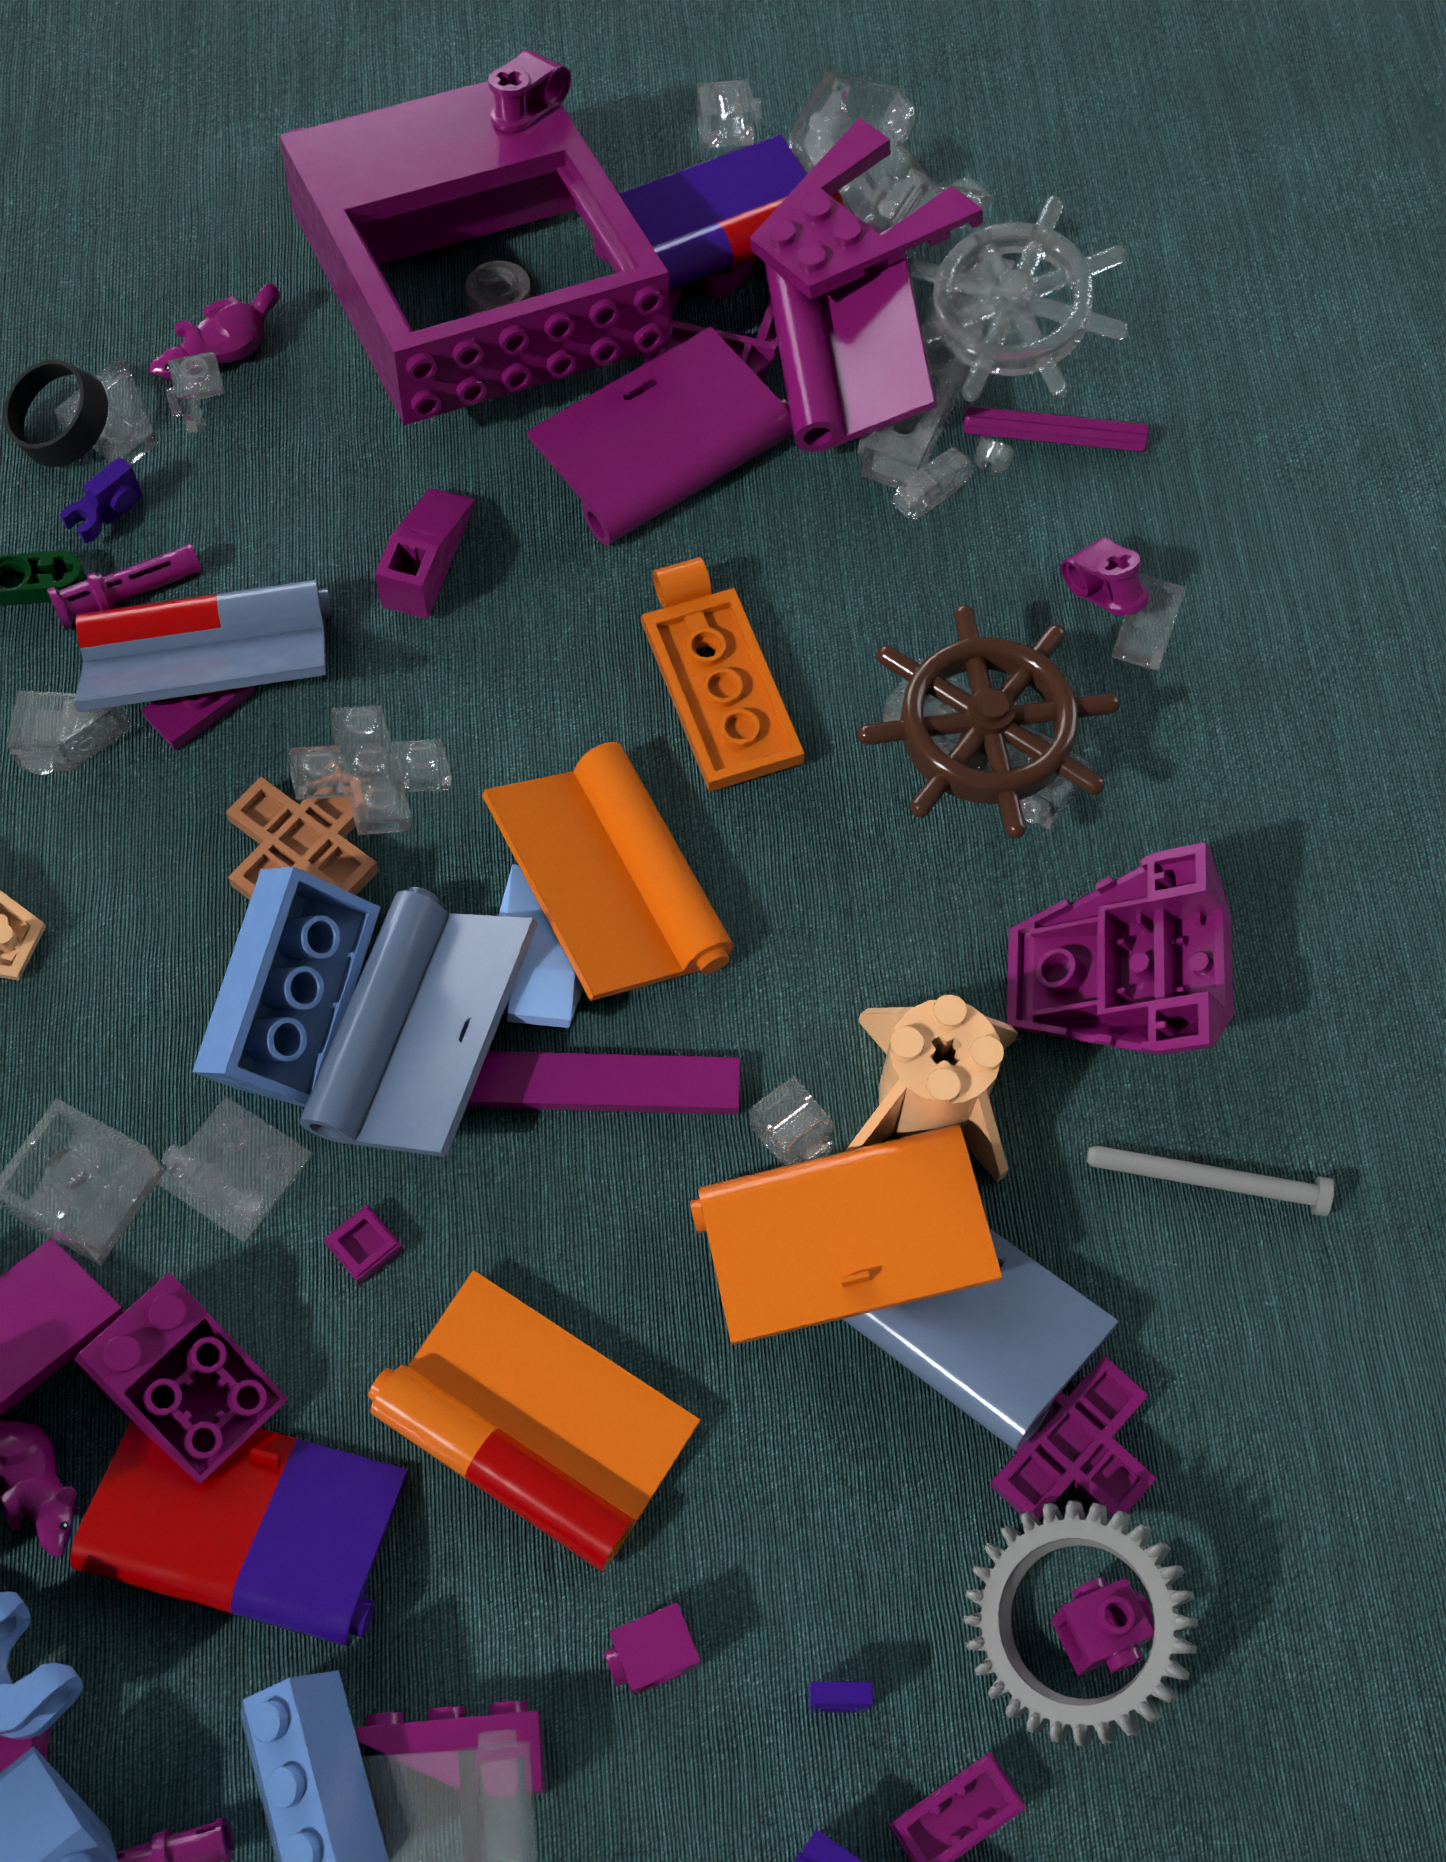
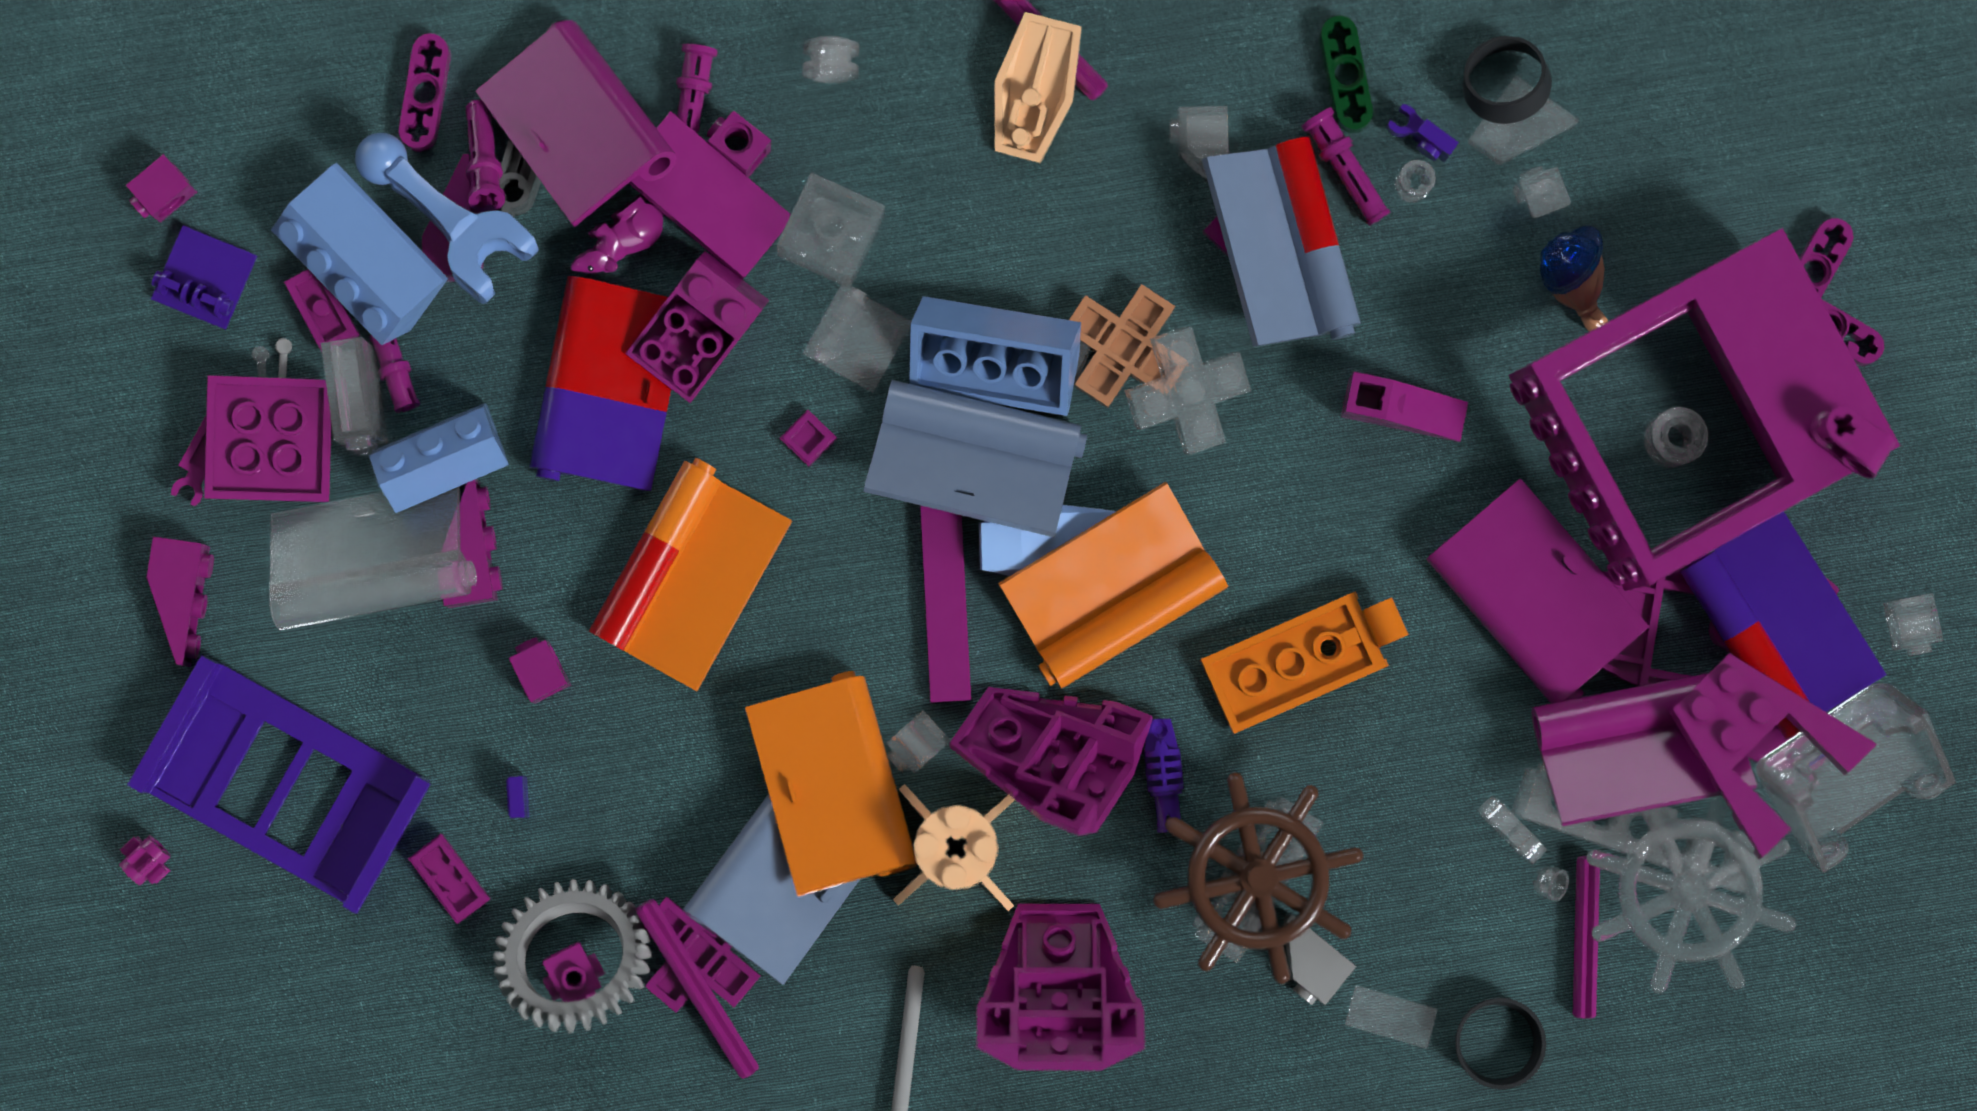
camera: 85 degrees right, 20 degrees up
(155, 508) = (1427, 180): none -> clear bush
(230, 331) = (1605, 207): magenta animal -> none
(298, 364) = (1575, 272): none -> clear blue piece
(816, 951) = (1055, 755): none -> magenta wedge
(847, 838) = (1163, 770): none -> dark purple hinge
(1097, 672) = (1316, 966): none -> light grey slope
(1107, 577) = (1424, 980): magenta piece -> none
(1121, 1442) = (697, 988): none -> magenta axle
(1183, 481) = (1535, 1060): none -> black tyre

